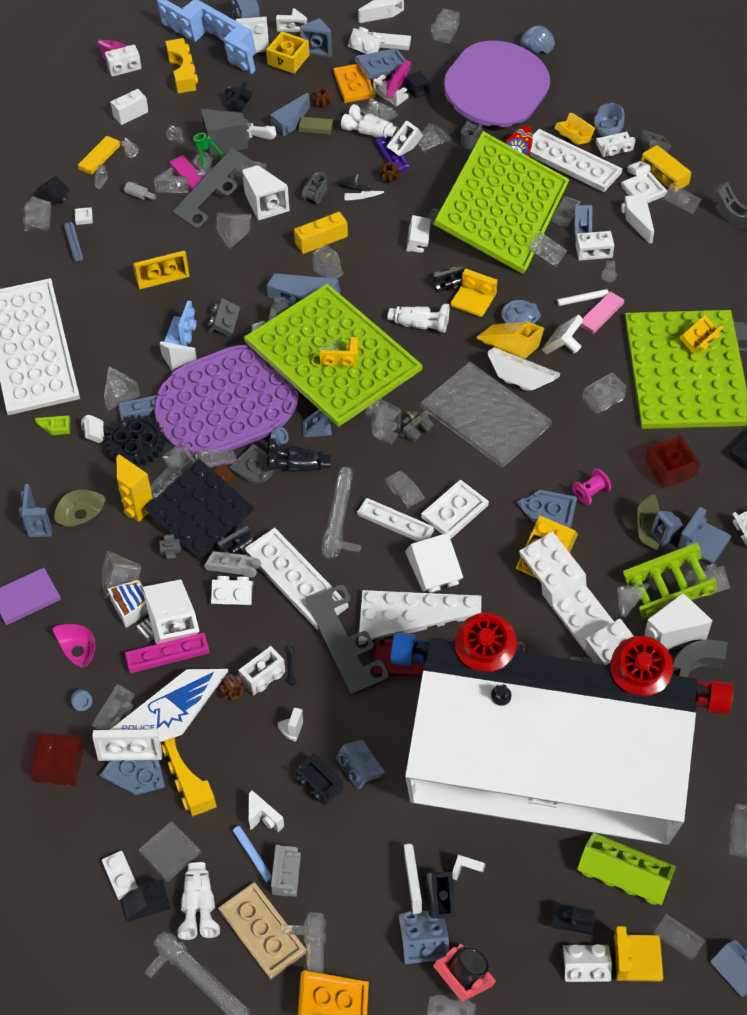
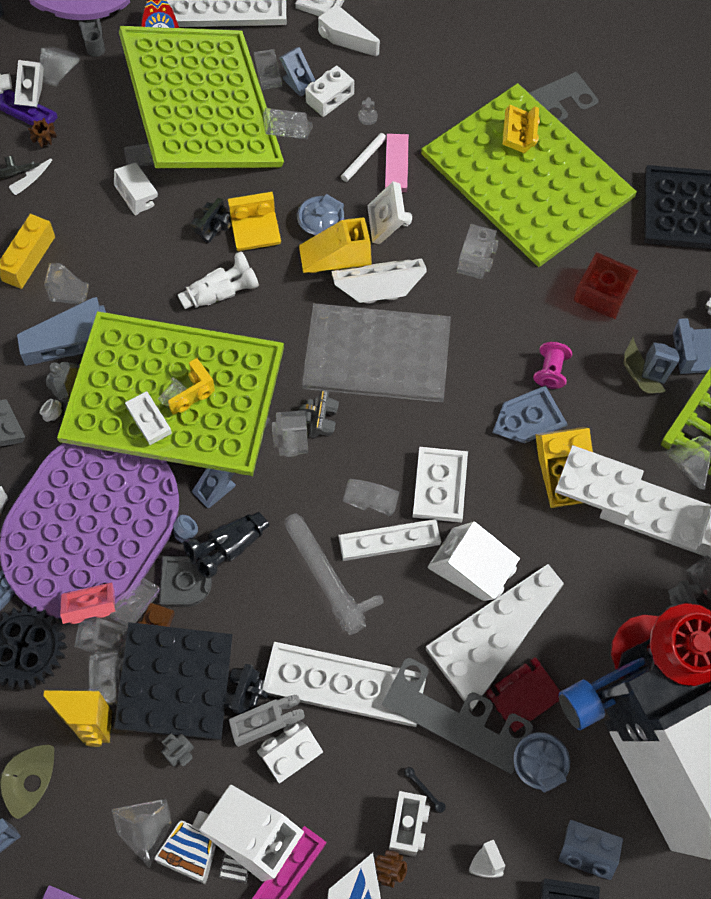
camera: 40 degrees left, 10 degrees up
(186, 435) = (87, 603): none -> coral plate
(303, 355) = (148, 418): none -> white plate
(373, 695) = (542, 761): none -> sand blue piece

